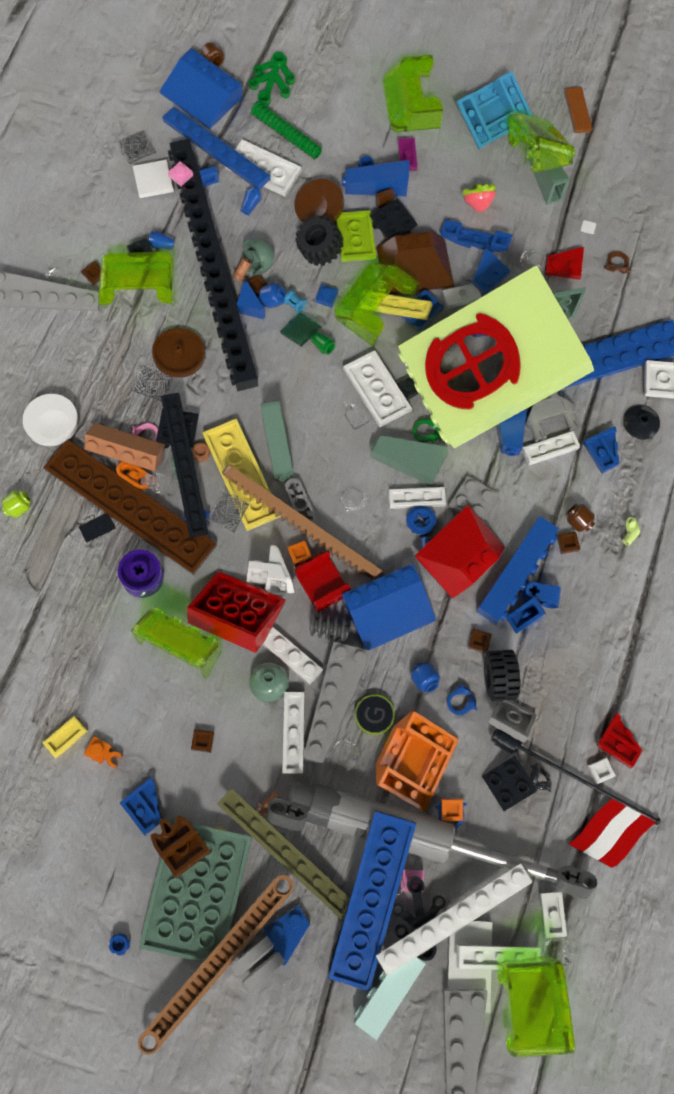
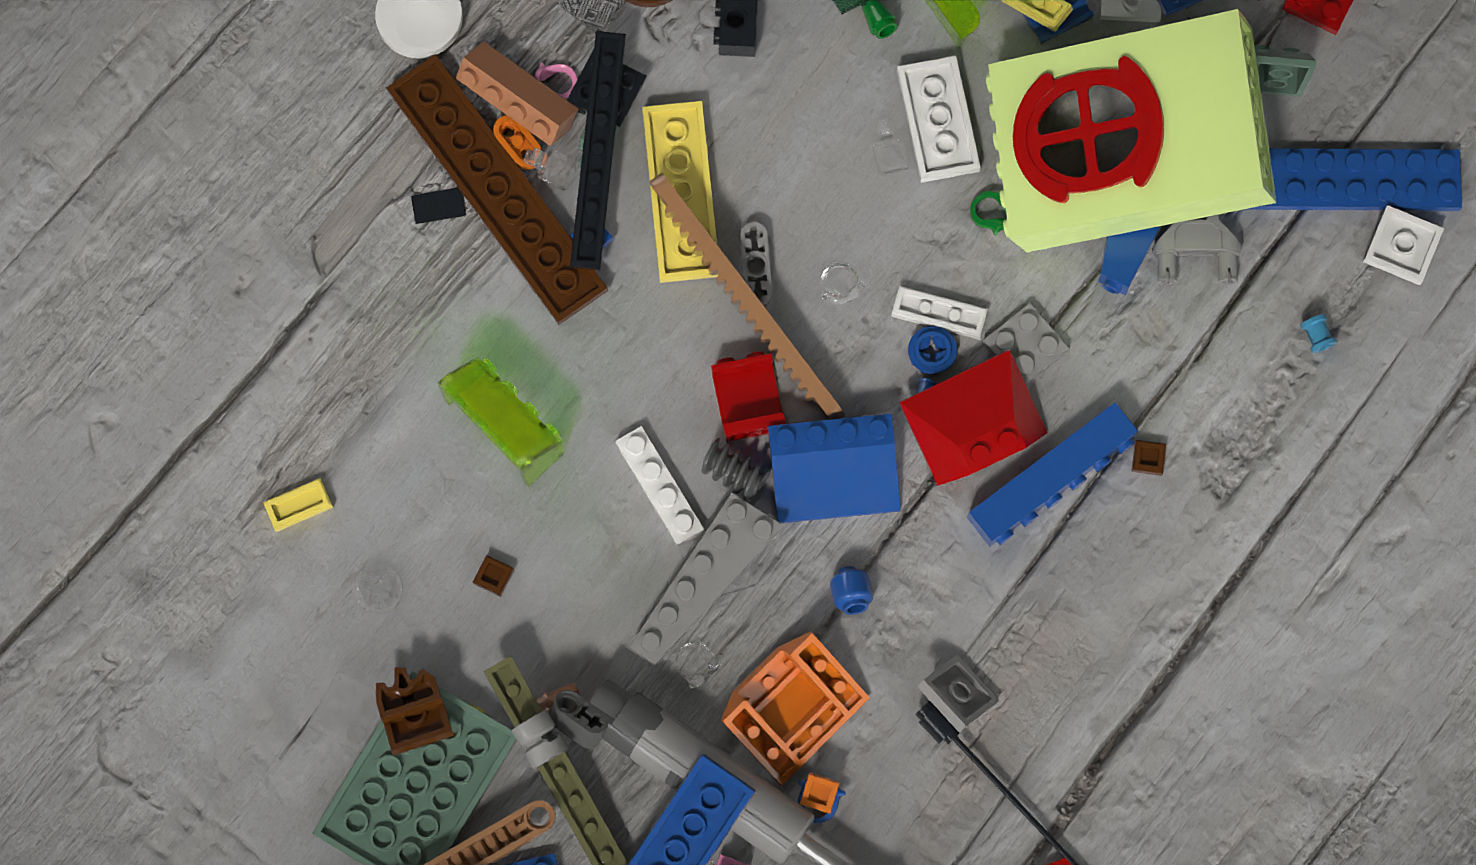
camera: 25 degrees right, 5 degrees up
(16, 503) = (329, 131): lime head -> none
(100, 751) = (342, 542): orange plate -> none
(125, 944) = (283, 812): blue plate -> none
(140, 573) = (476, 281): dark purple wheel -> none
(143, 807) = (379, 641): blue wing -> none
(200, 452) = (631, 136): nougat tile -> none
(228, 511) = (642, 244): clear piece -> none
(235, 611) = (602, 400): red slope -> none
(267, 836) = (540, 739): none -> light grey wheel
(269, 682) = (618, 522): sand green cylinder -> none
(272, 575) = (674, 363): white piece -> none
(276, 441) = (751, 157): sand green slope -> none
(293, 733) = (628, 607): white plate -> none
(299, 553) = (728, 342): orange plate -> none
(374, 714) = (757, 620): black tile -> none
(407, 388) = (983, 133): black plate -> none
(410, 457) = (951, 247): sand green slope -> none
(460, 691) = (903, 654): blue piece -> none
(479, 640) = (954, 563): reddish brown tile -> none
(502, 675) = (964, 624): black tyre -> none
(509, 783) = (920, 785): black hinge -> none
(526, 615) = (1037, 548): blue slope -> none
(544, 785) = (960, 784): black piece -> none
(546, 594) = (1079, 526): blue piece -> none
(550, 448) = (1179, 299): white tile -> none
(580, 517) = (1181, 425): reddish brown head -> none
(601, 770) = (1065, 813): white tile -> none
(603, 449) = (1261, 328): blue wing -> none
(620, 743) = (1108, 782): red wing -> none
(625, 269) = (1416, 40): reddish brown piece -> none
(632, 531) = (1256, 472): yellowish green arm -> none
(636, 442) = (1318, 333): none -> dark azure bush
(639, 428) = (1343, 317): black dish -> none

